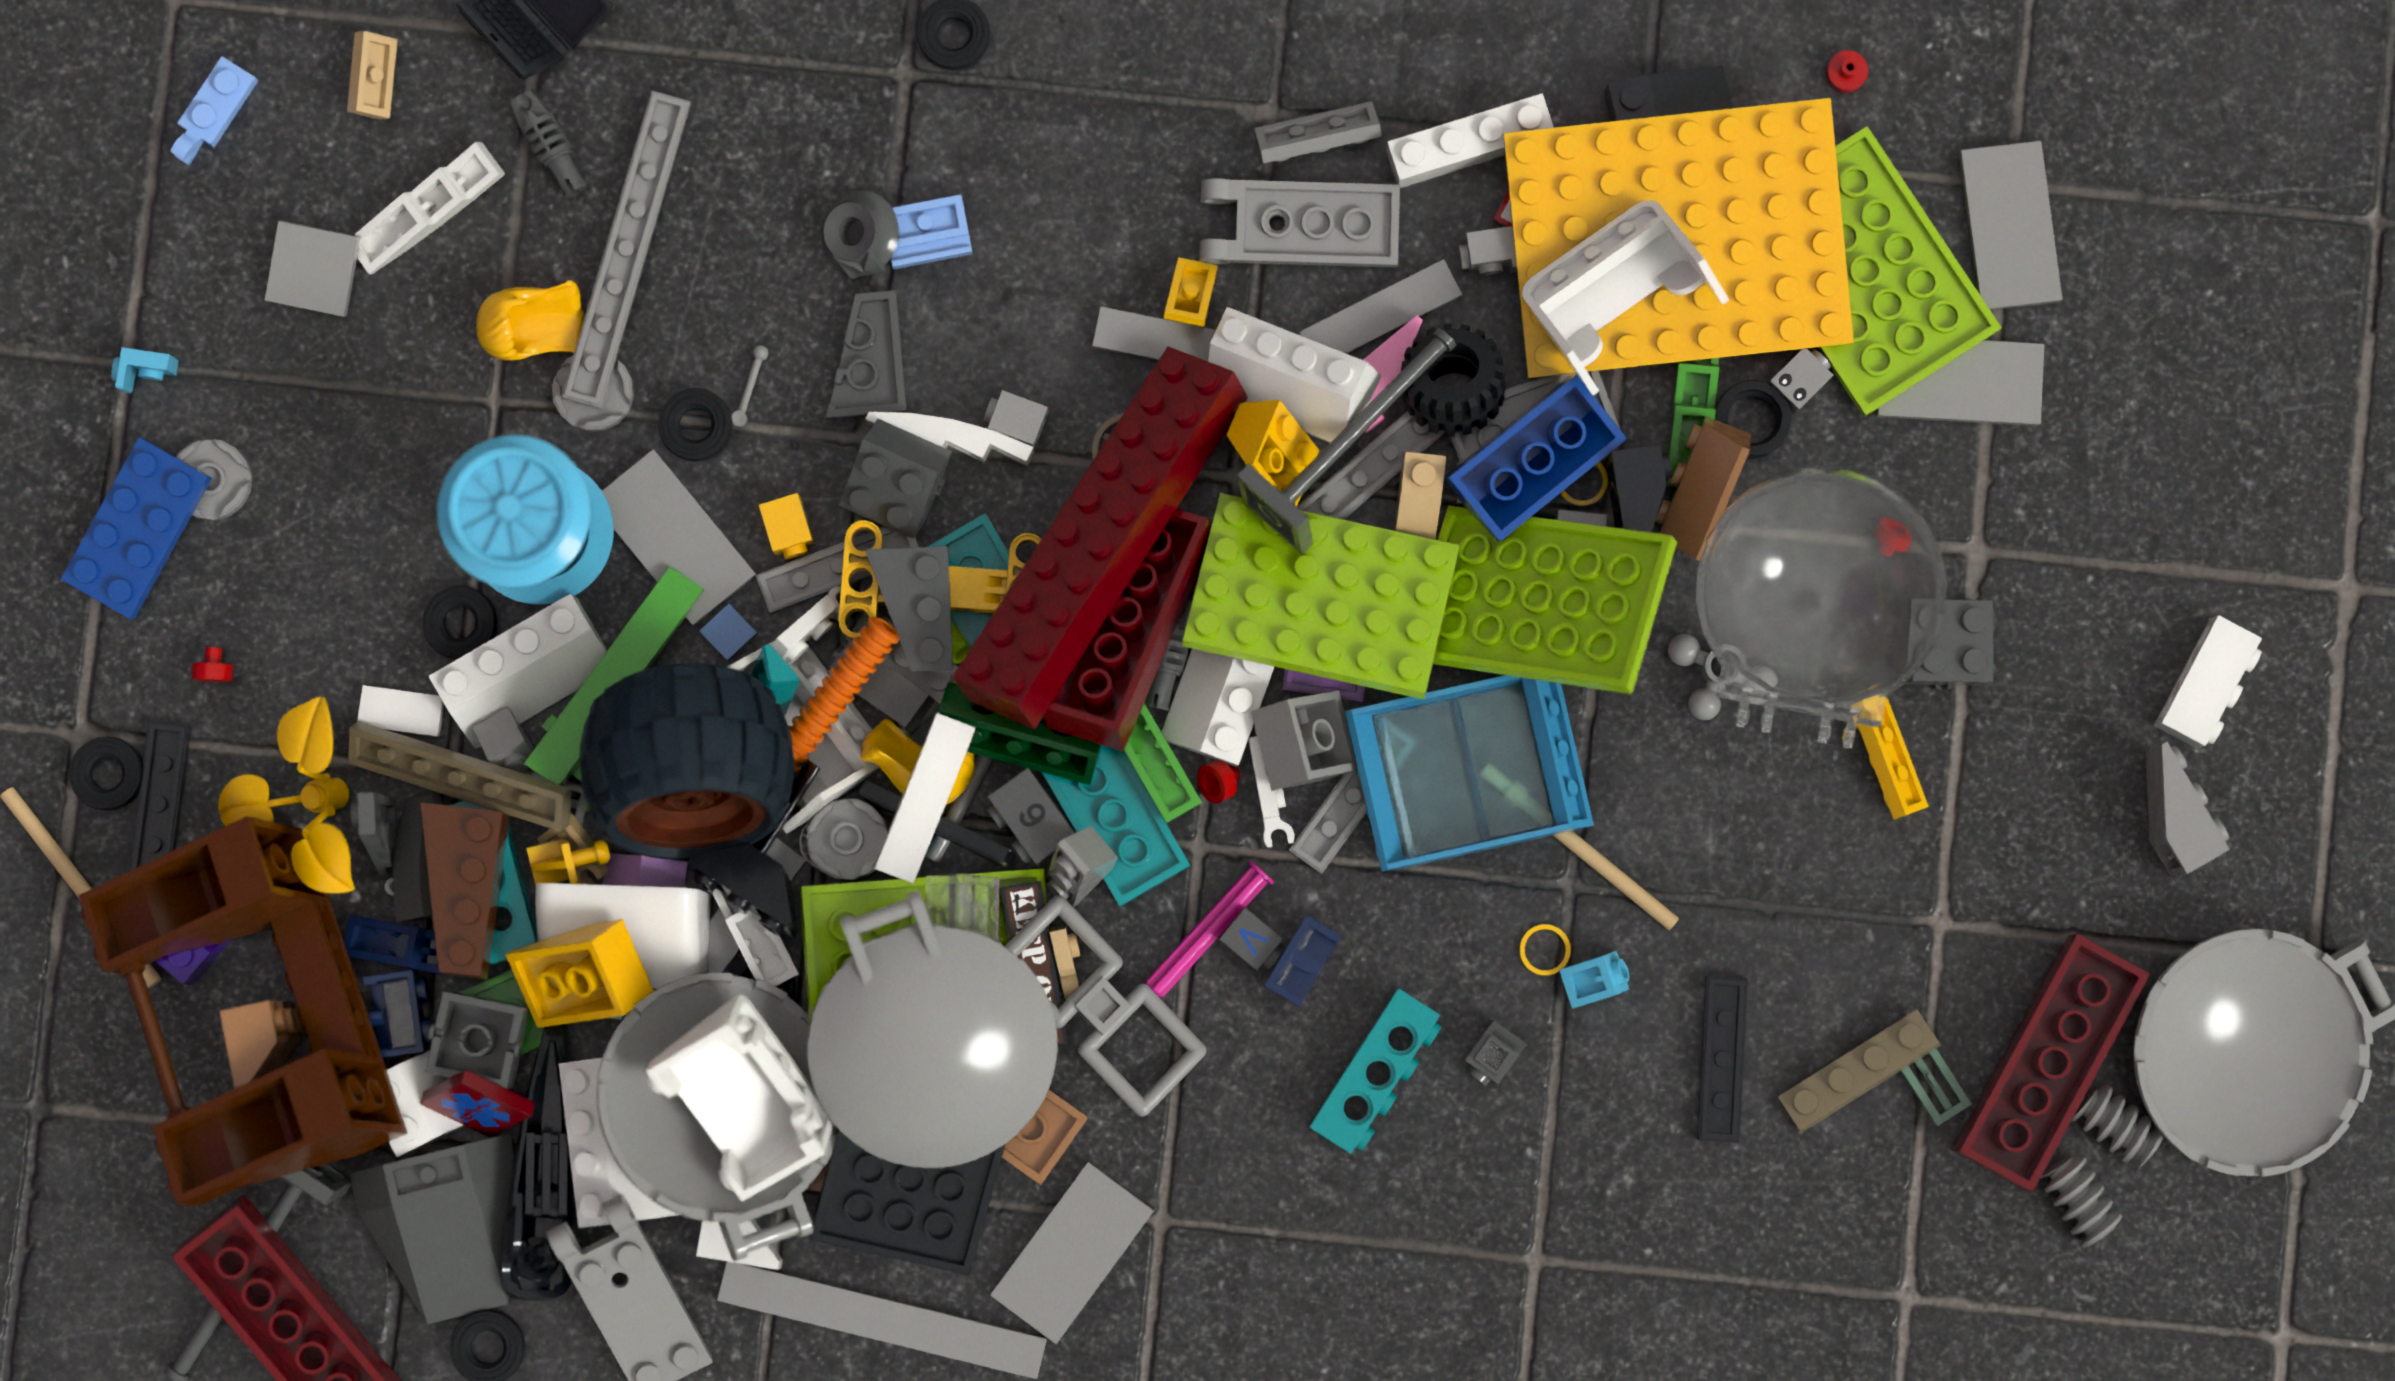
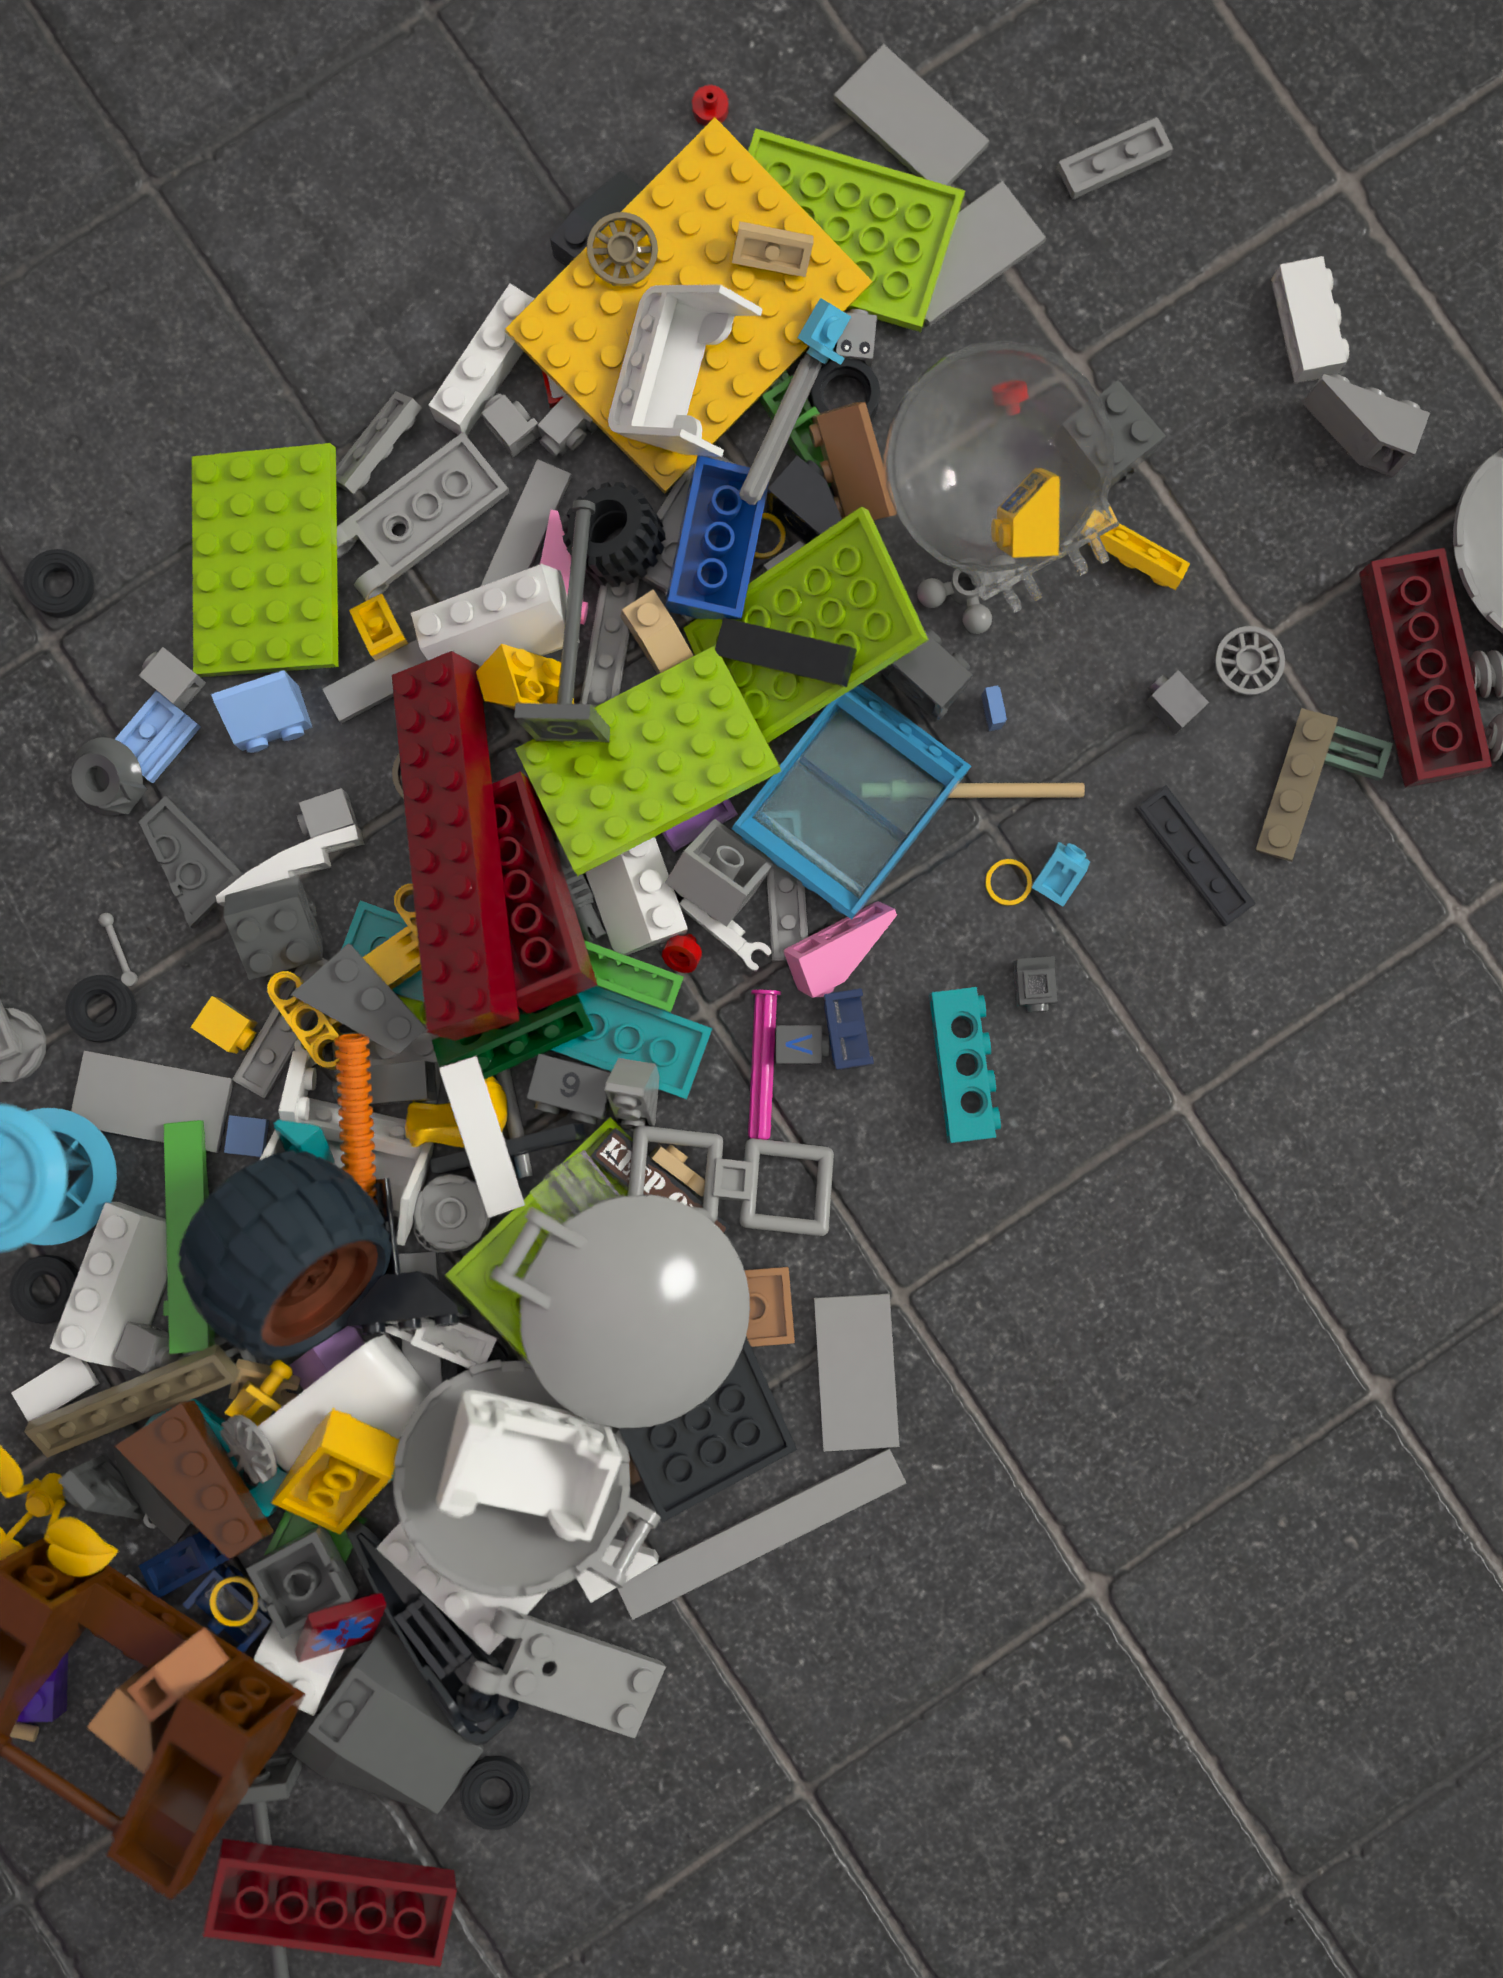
camera: 45 degrees left, 0 degrees up
(327, 1028) = (177, 1674): none -> nougat slope
(385, 1008) = (219, 1616): none -> yellow piece
(522, 895) = (249, 1448): none -> light grey wheel
(981, 193) = (171, 678): none -> light grey brick
(1035, 289) = (263, 711): none -> light blue slope
(1141, 158) = (264, 561): none -> lime plate
(1346, 886) = (835, 952): none -> bright pink slope
(1445, 209) = (510, 424): none -> light grey brick
(1510, 602) = (785, 652): none -> black tile
(1622, 722) = (930, 676): none -> dark grey brick
(1654, 792) = (994, 708): none -> medium blue tile
(1657, 148) = (622, 249): none -> dark tan wheel
(1667, 408) = (780, 430): none -> light grey axle
(1773, 353) = (823, 331): none -> medium azure bracket
(1784, 251) = (772, 249): none -> tan plate
(1806, 659) = (1030, 517): none -> yellow slope
(1815, 913) = (1175, 700): none -> flat silver brick
(1910, 932) = (1249, 660): none -> light grey wheel
(2158, 404) = (1114, 158): none -> light grey plate

